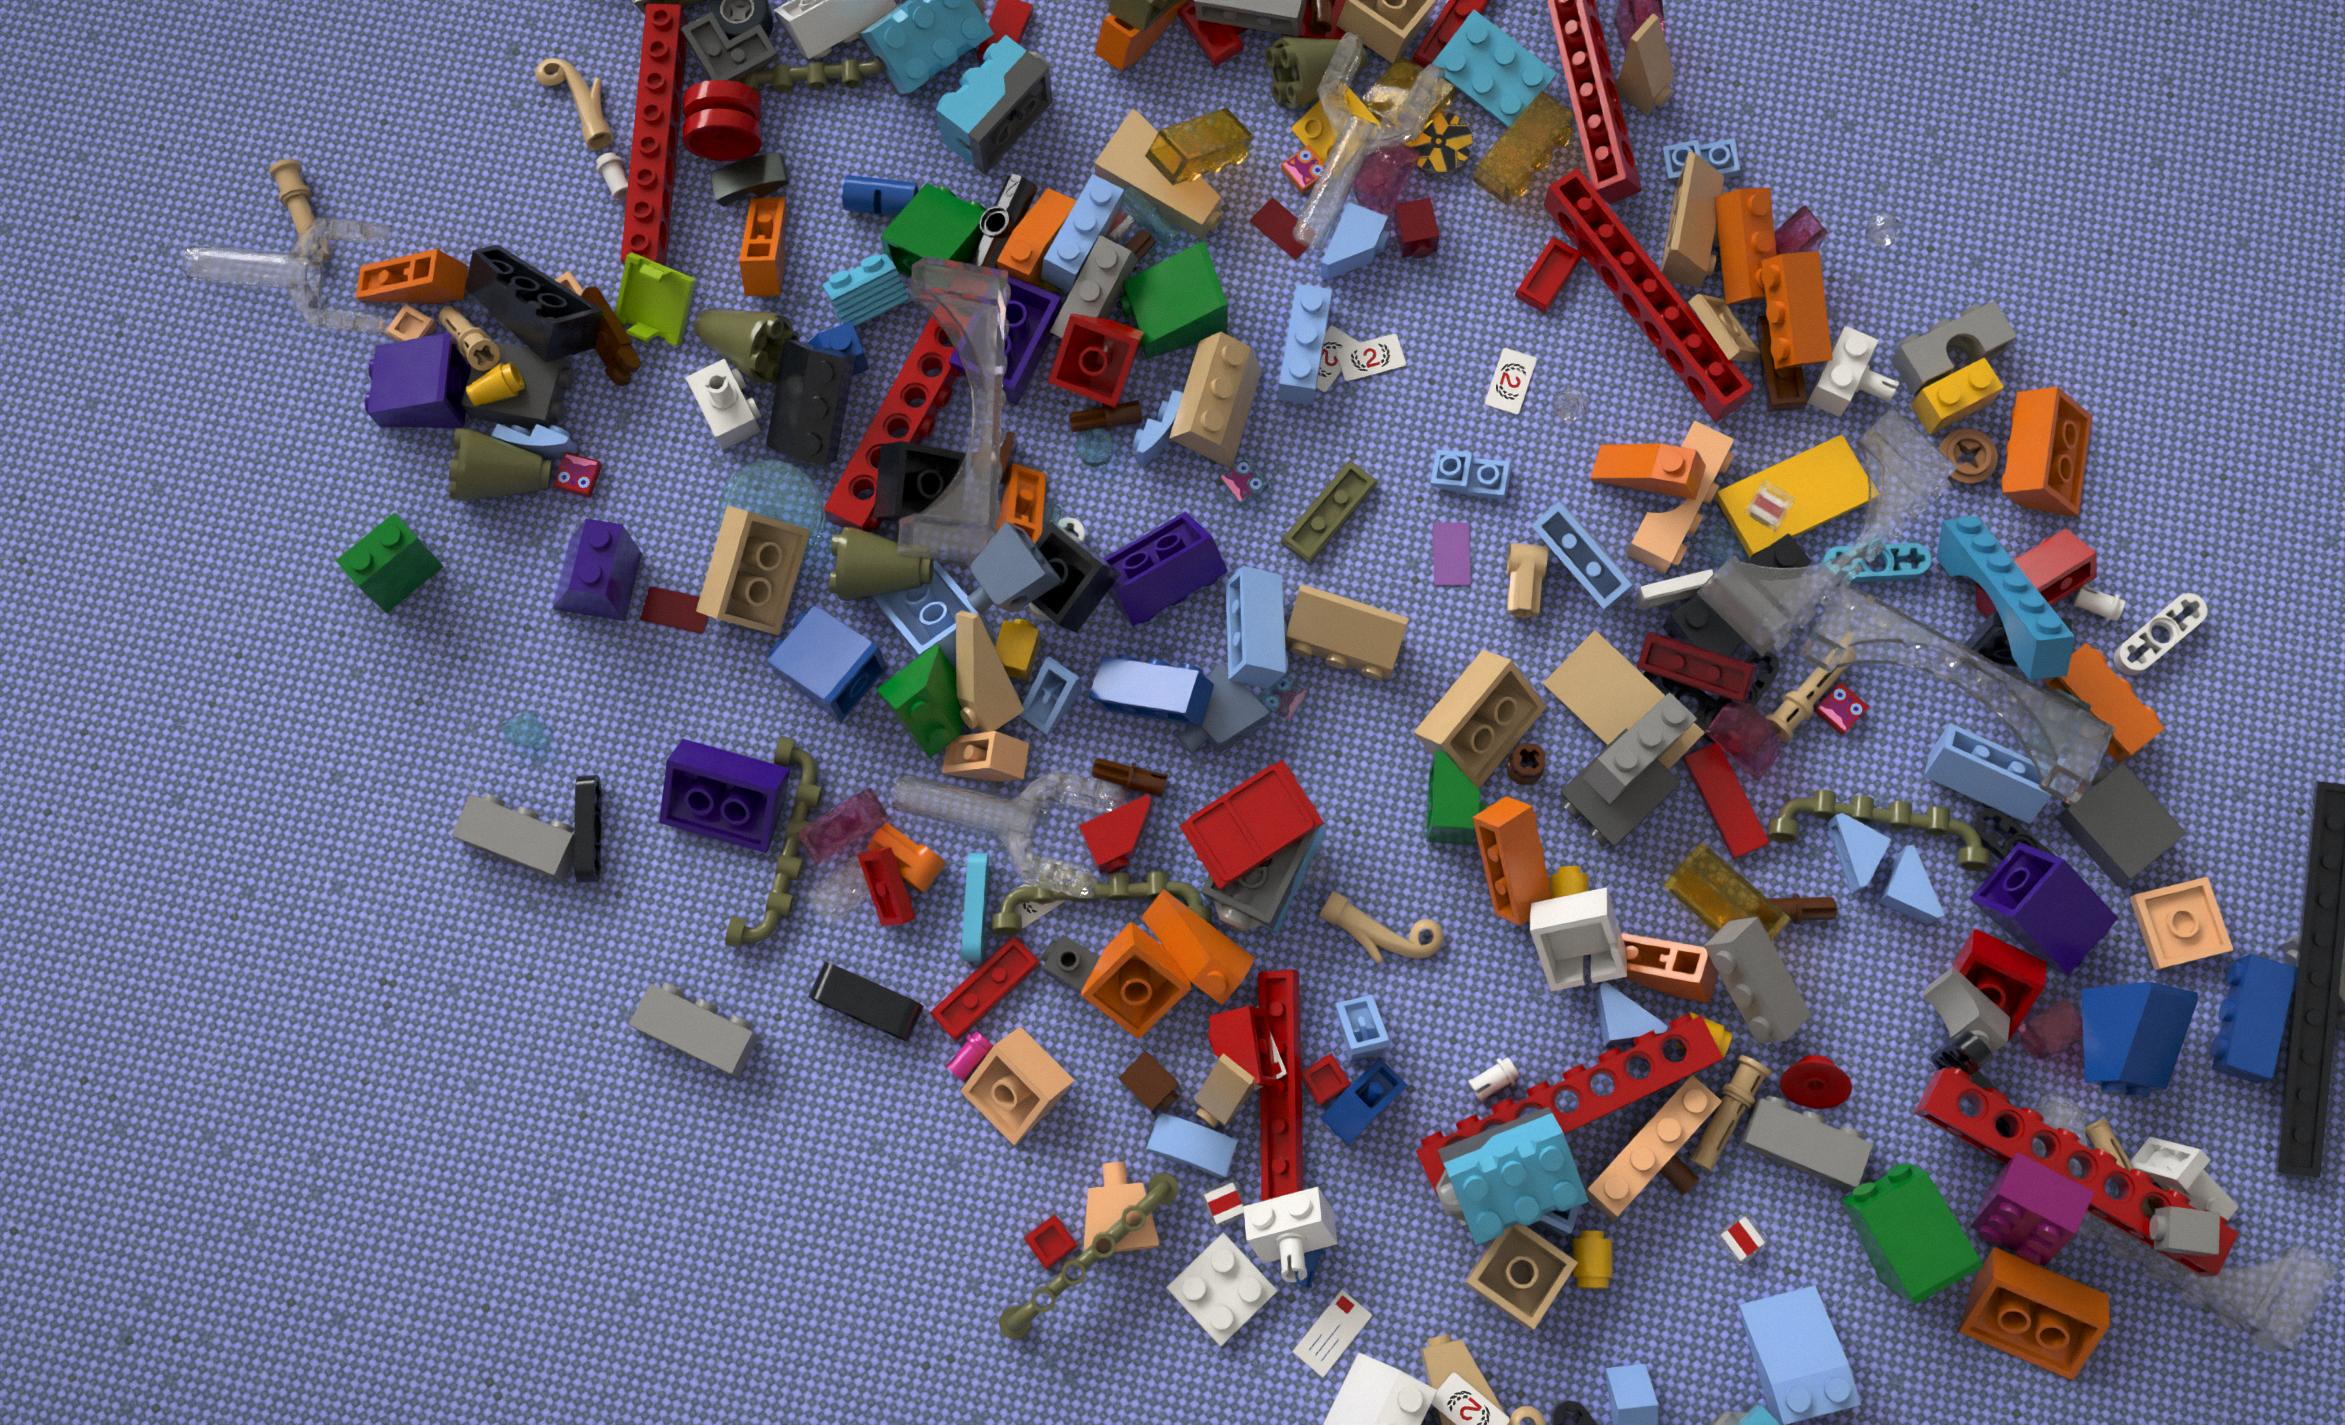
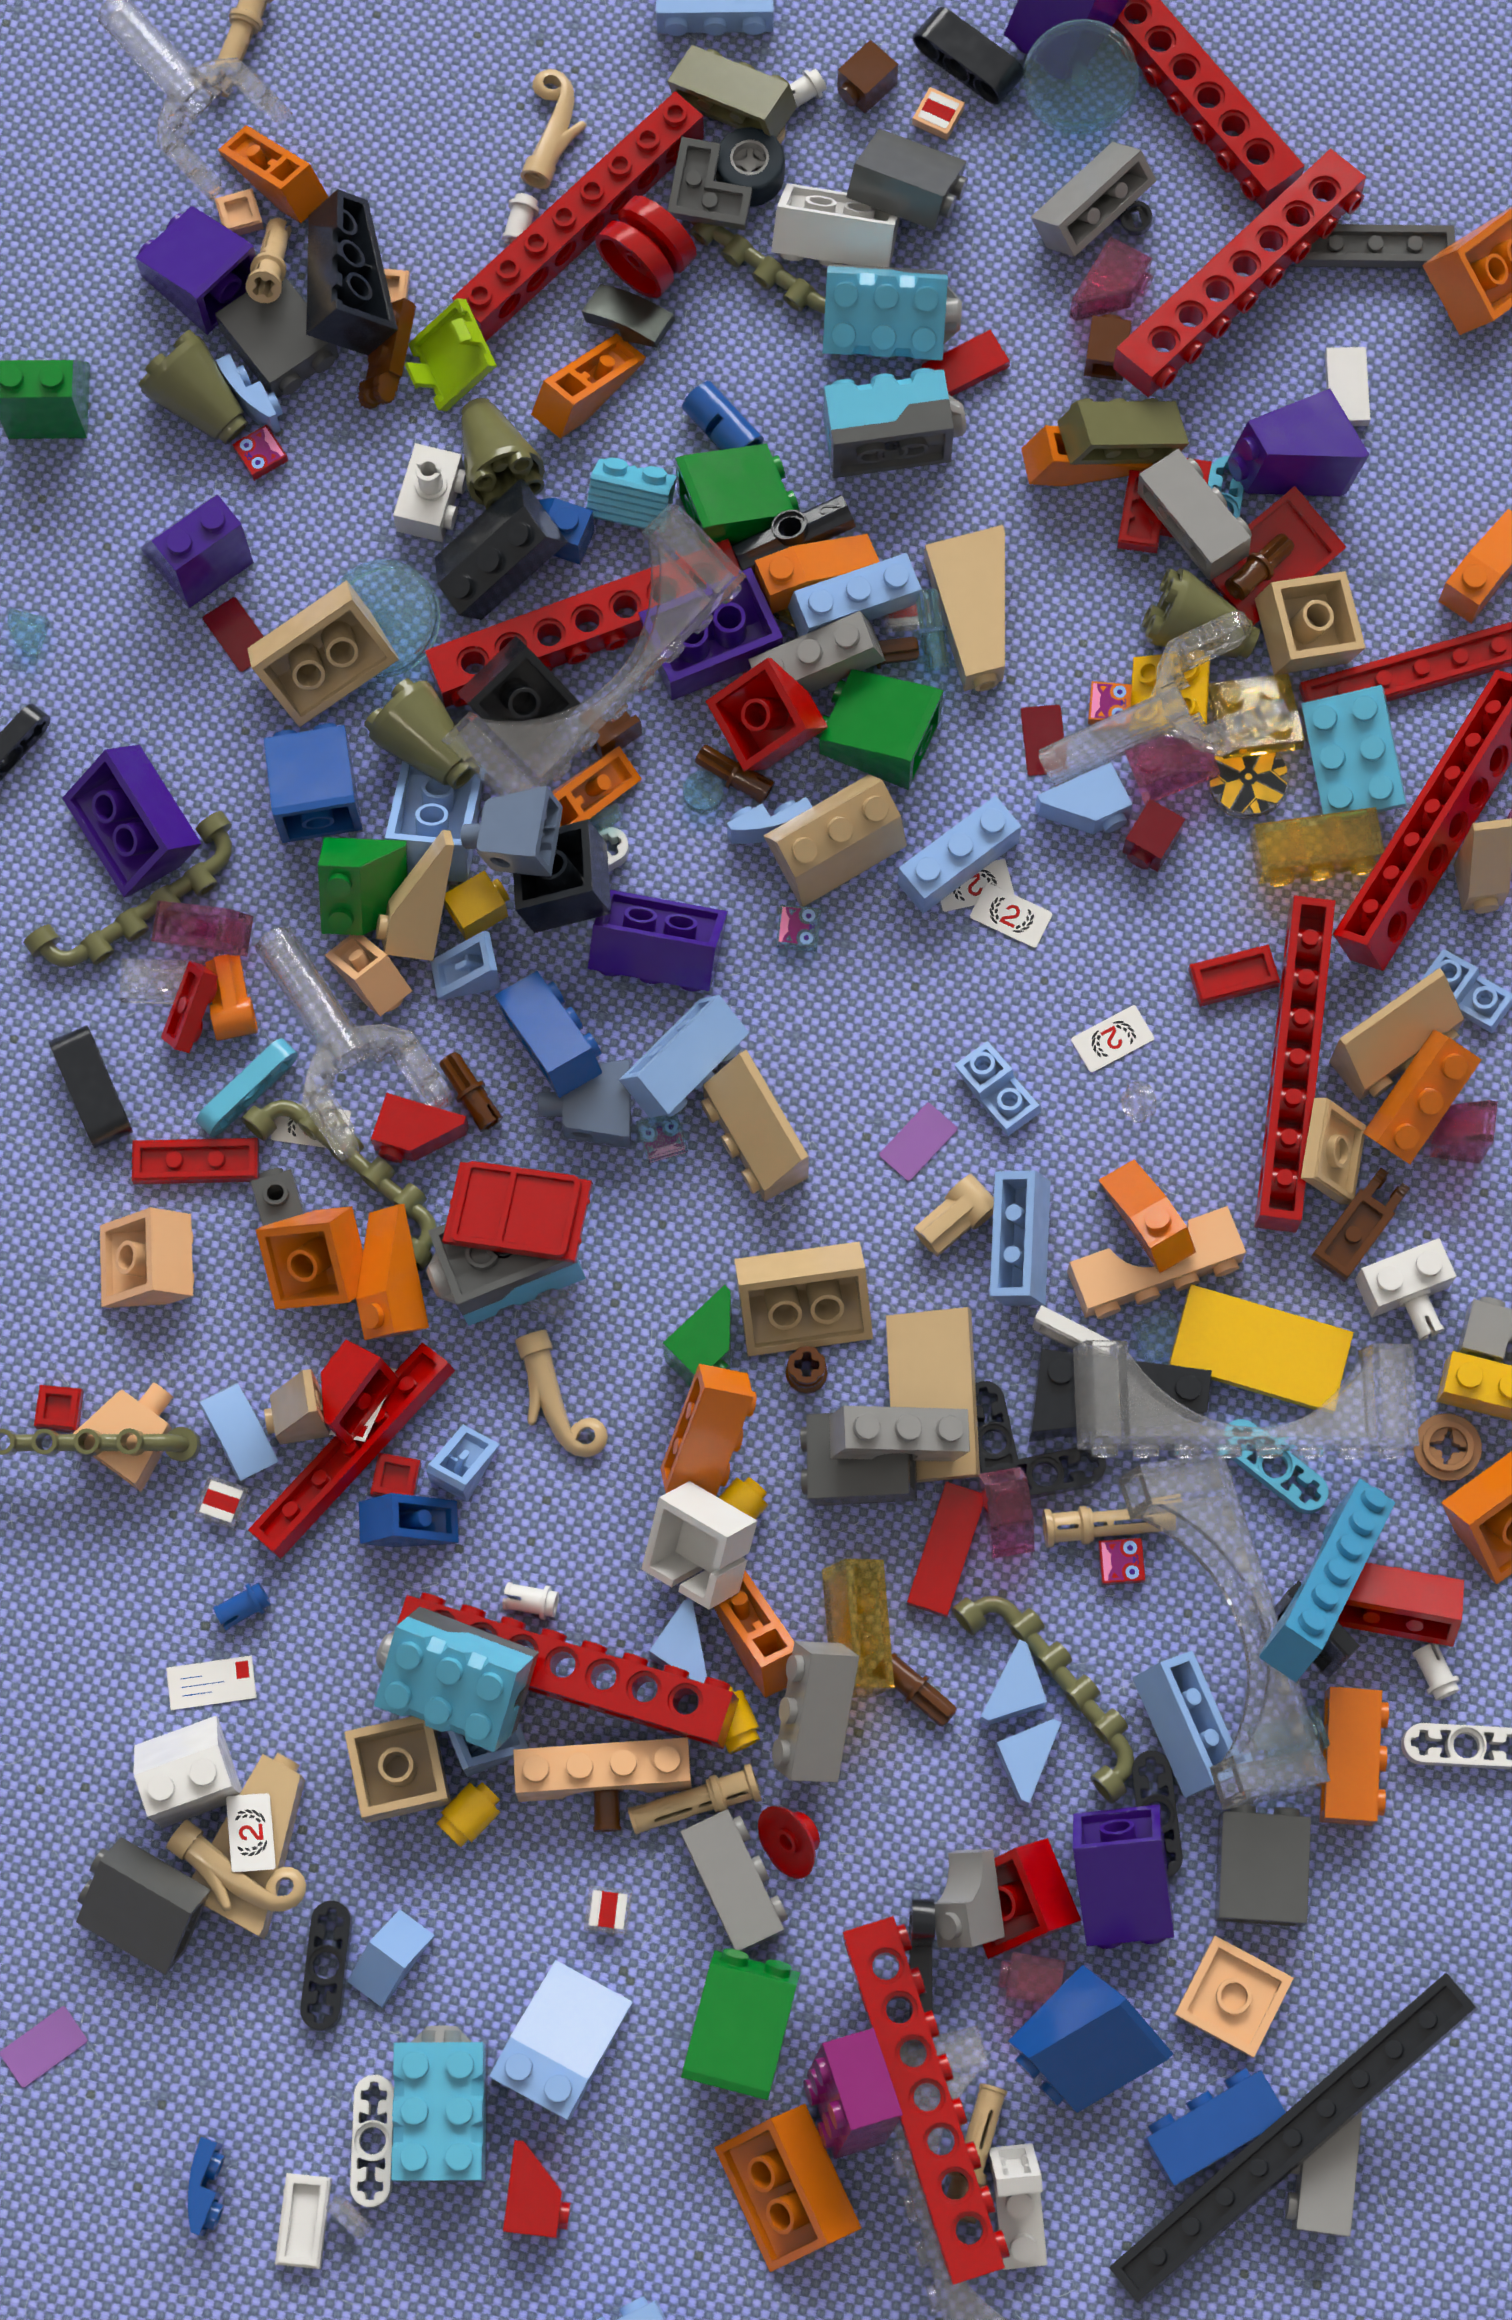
camera: 40 degrees right, 0 degrees up
(495, 385) = (257, 321): yellow cone -> none
(969, 1055) = (126, 1203): dark pink pin -> none
(1150, 1083) = (251, 1353): reddish brown brick -> none
(1199, 146) = (1025, 606): clear yellow brick -> none
(1221, 1289) = (156, 1567): white plate -> none
(1289, 1228) = (247, 1563): white brick -> none
(1329, 512) = (847, 1016): olive tile -> none
(1697, 667) = (1020, 1412): dark red tile -> none
(1769, 505) = (1222, 1335): clear tile -> none
(1796, 309) = (1403, 1186): orange brick -> none
(2185, 1231) = (954, 2219): light grey brick -> none

